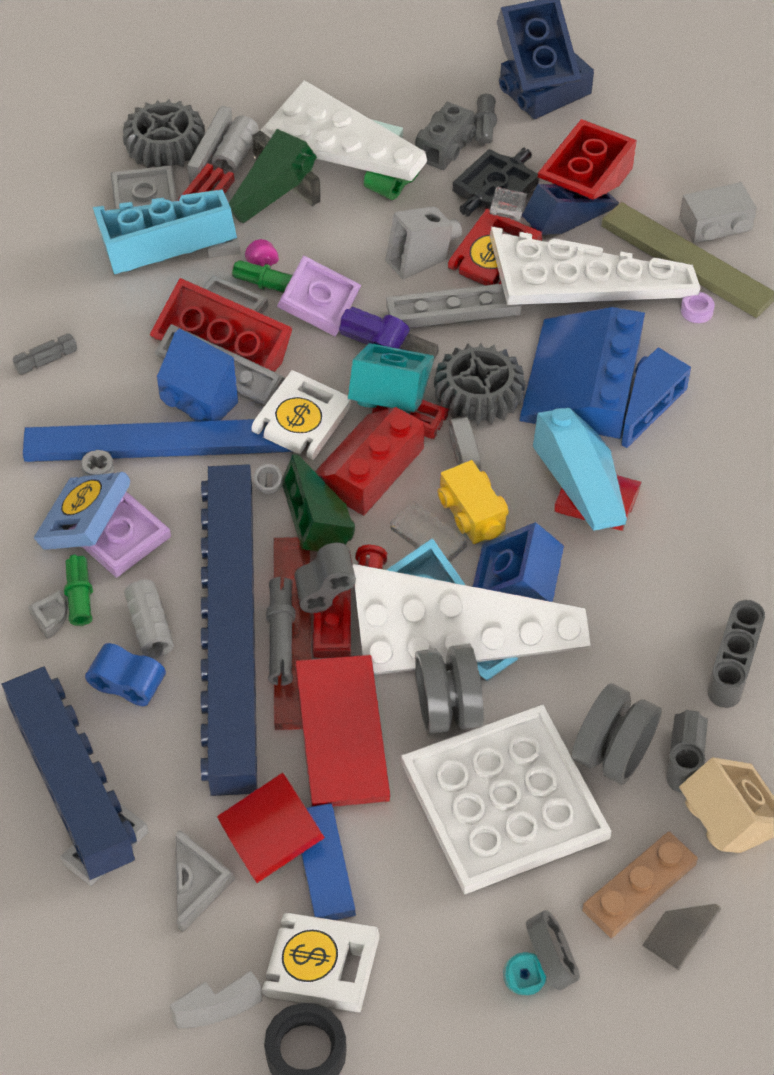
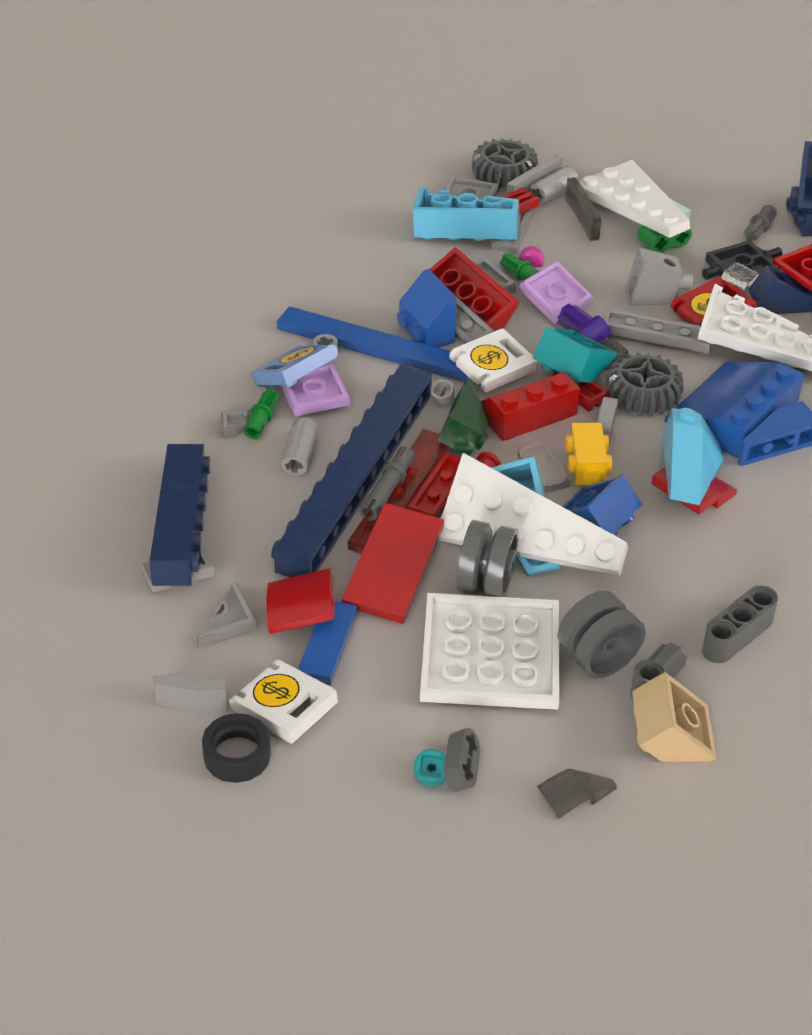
camera: 25 degrees right, 10 degrees down
(44, 353) = (333, 268): dark grey axle -> none
(125, 674) = (260, 473): blue axle -> none
(274, 173) = (565, 205): dark green slope -> none
(324, 577) = (439, 457): dark grey axle -> none
(446, 135) = (720, 223): dark grey brick -> none
(639, 884) = (562, 748): medium nougat plate -> none

